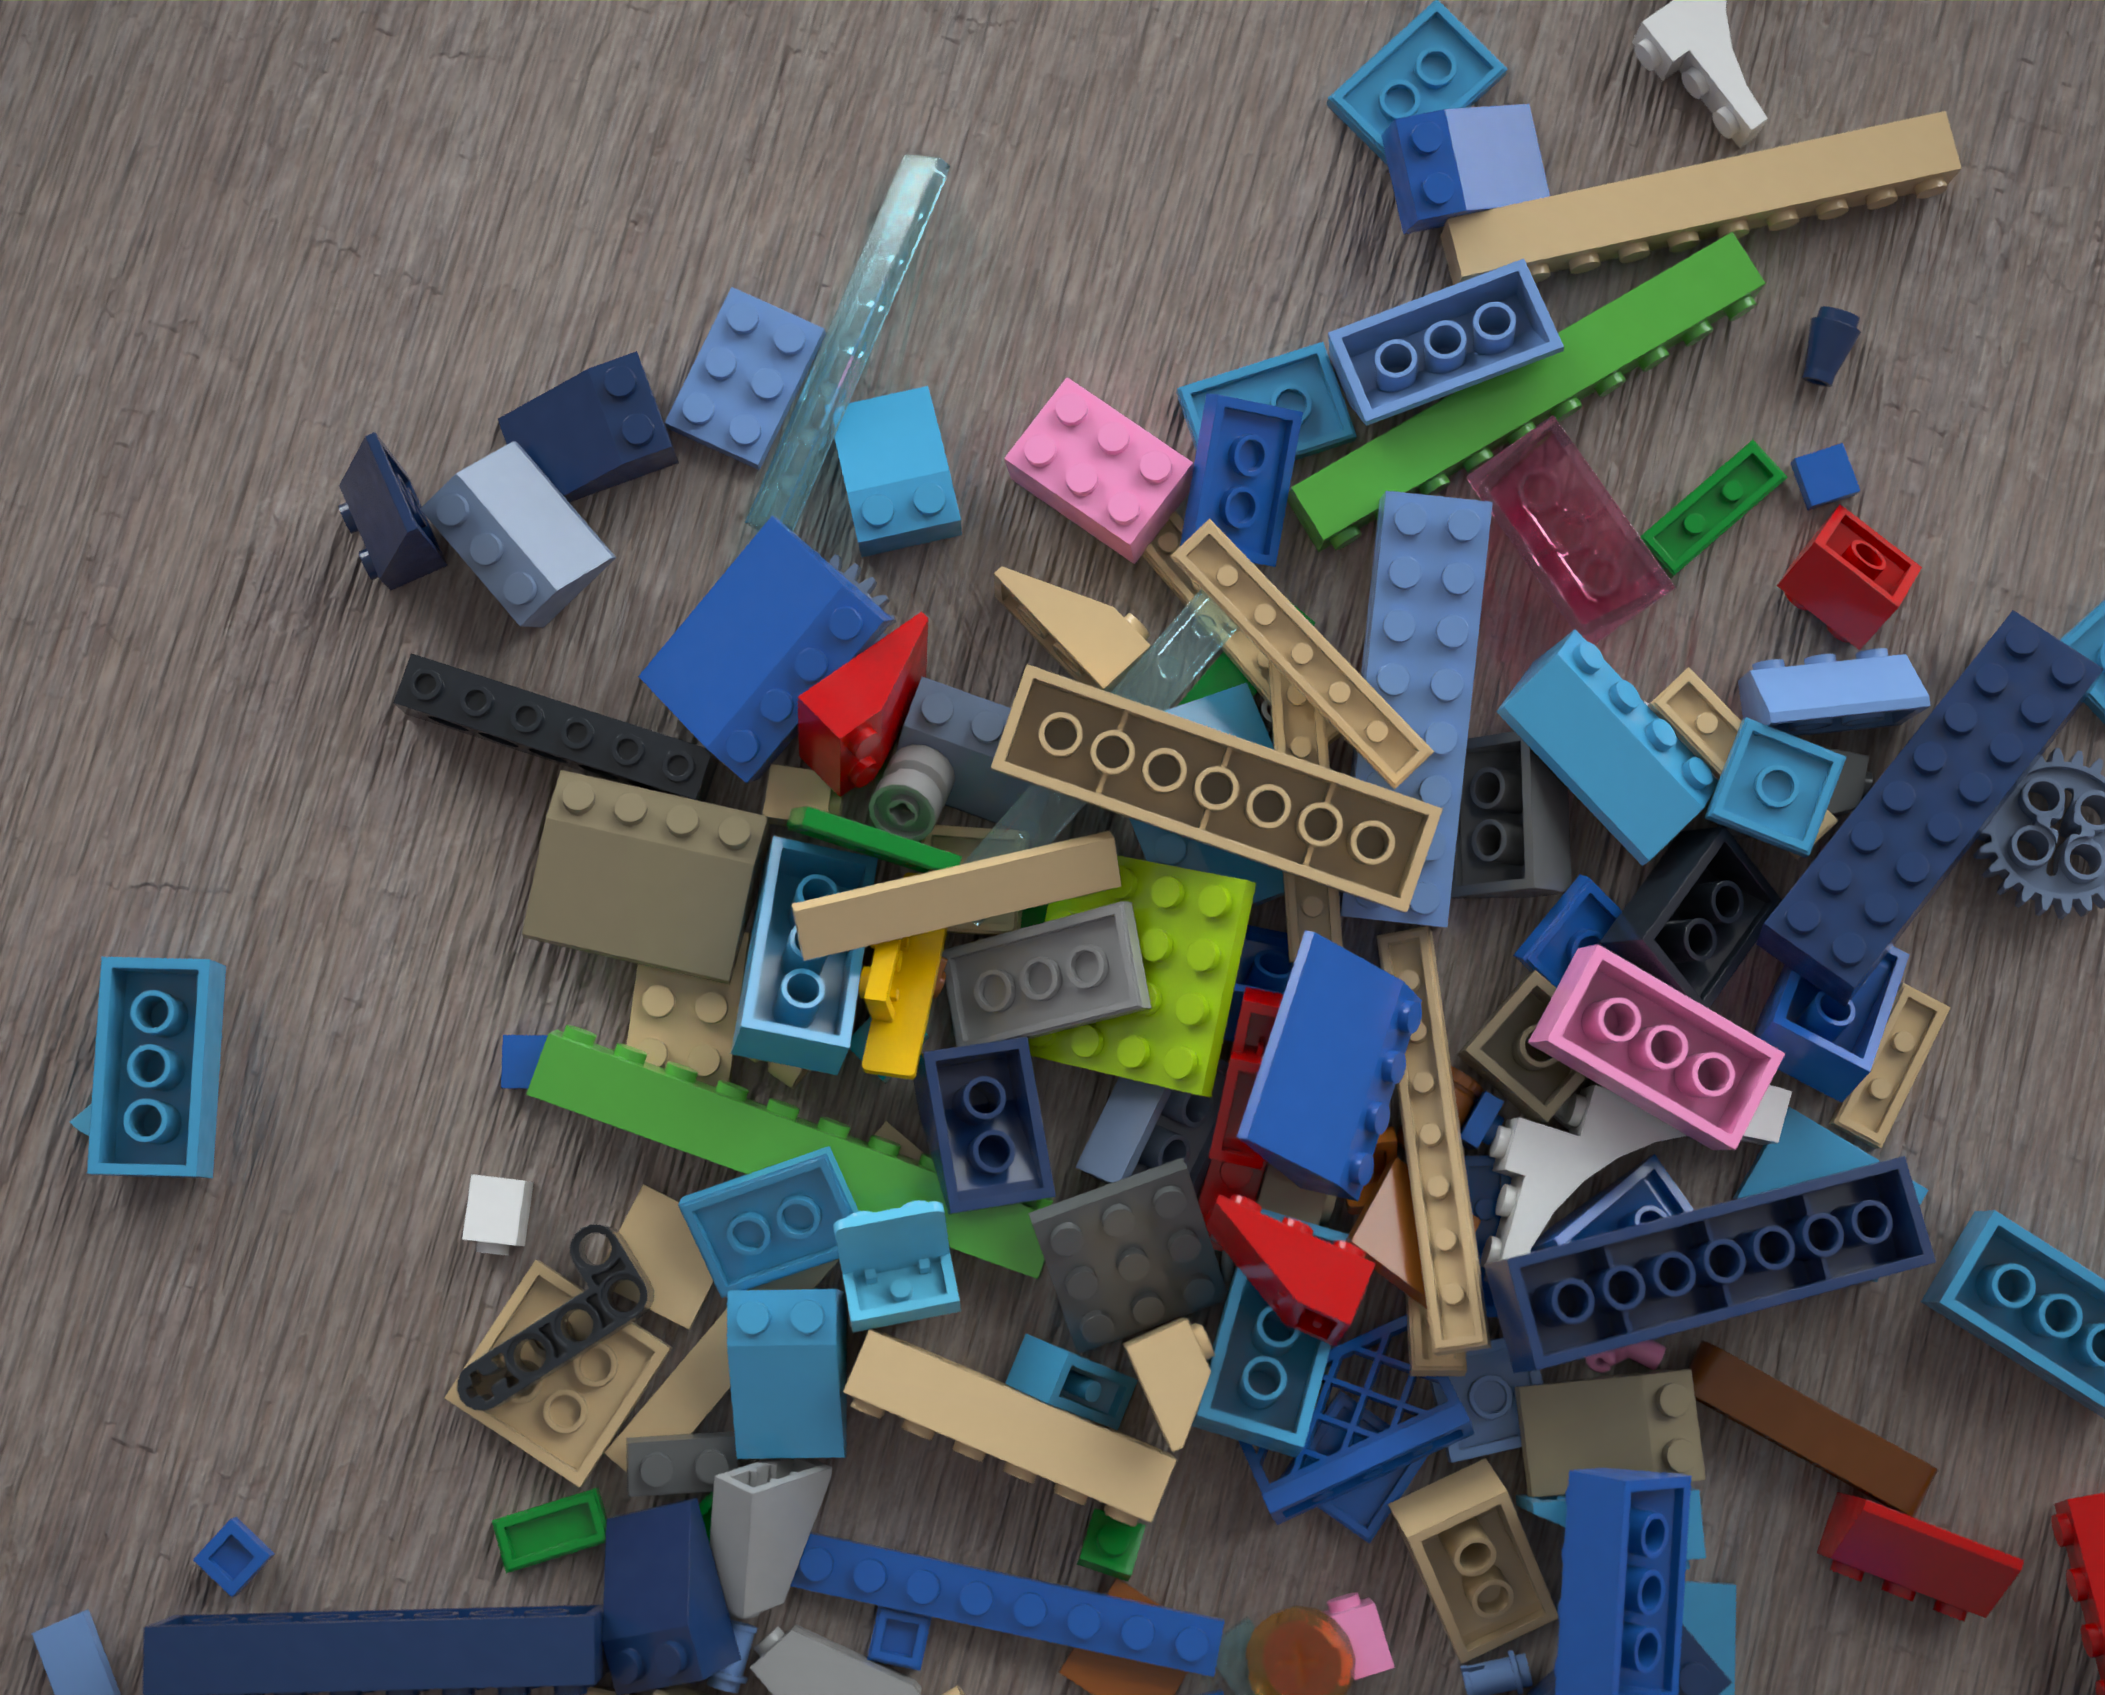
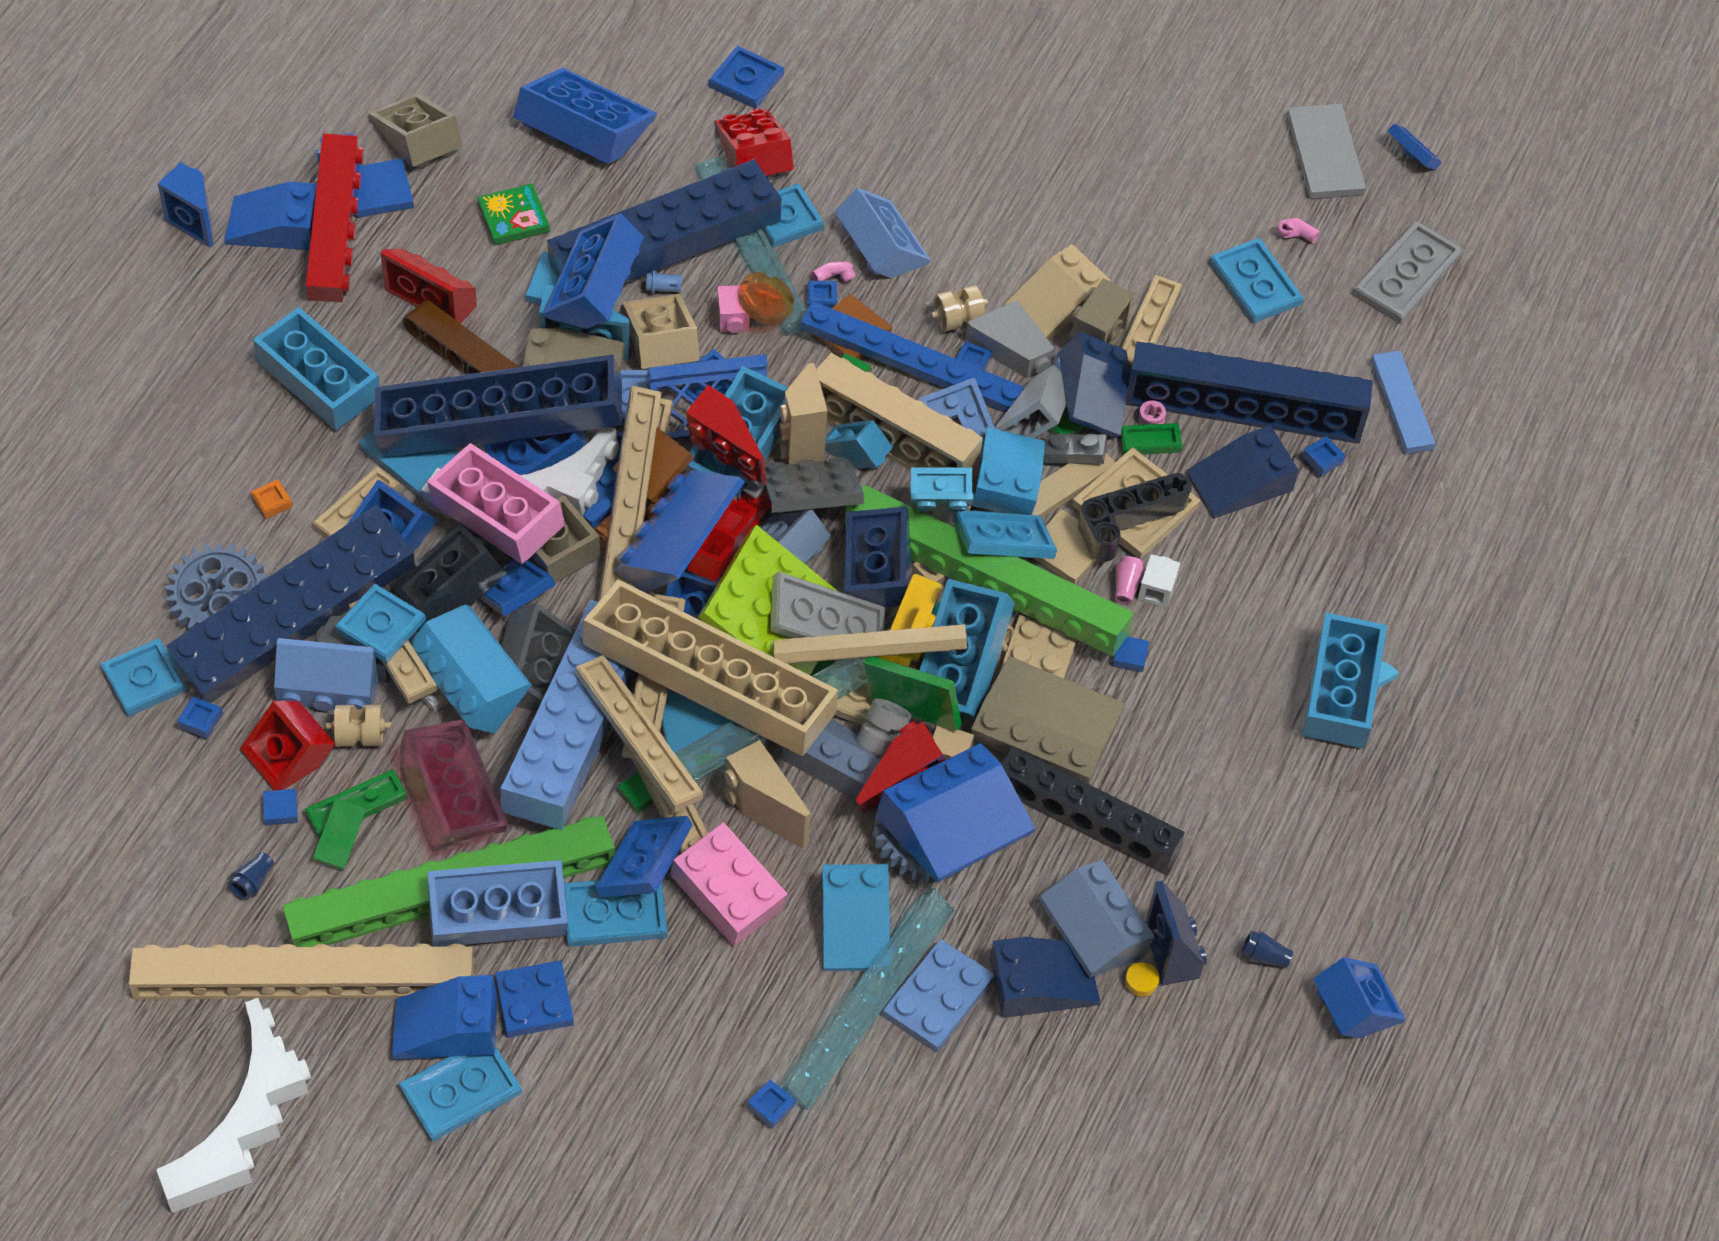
camera: 170 degrees left, 25 degrees down
(94, 496) = (1358, 998): none -> blue slope
(249, 552) = (1266, 950): none -> dark blue cone
(375, 1480) = (1244, 473): none -> dark blue slope
(434, 466) = (1142, 979): none -> yellow tile
(552, 1207) = (1128, 578): none -> bright pink cone
(554, 1599) = (1154, 408): none -> bright pink bush
(898, 1515) = (962, 402): none -> medium blue plate
(961, 146) = (771, 1104): none -> blue plate
(1348, 245) = (534, 998): none -> blue plate
(1719, 439) = (339, 834): none -> green tile
(1743, 630) = (358, 725): none -> tan wheel
(1999, 594) = (200, 717): none -> blue plate
(2034, 1045) = (271, 499): none -> orange tile

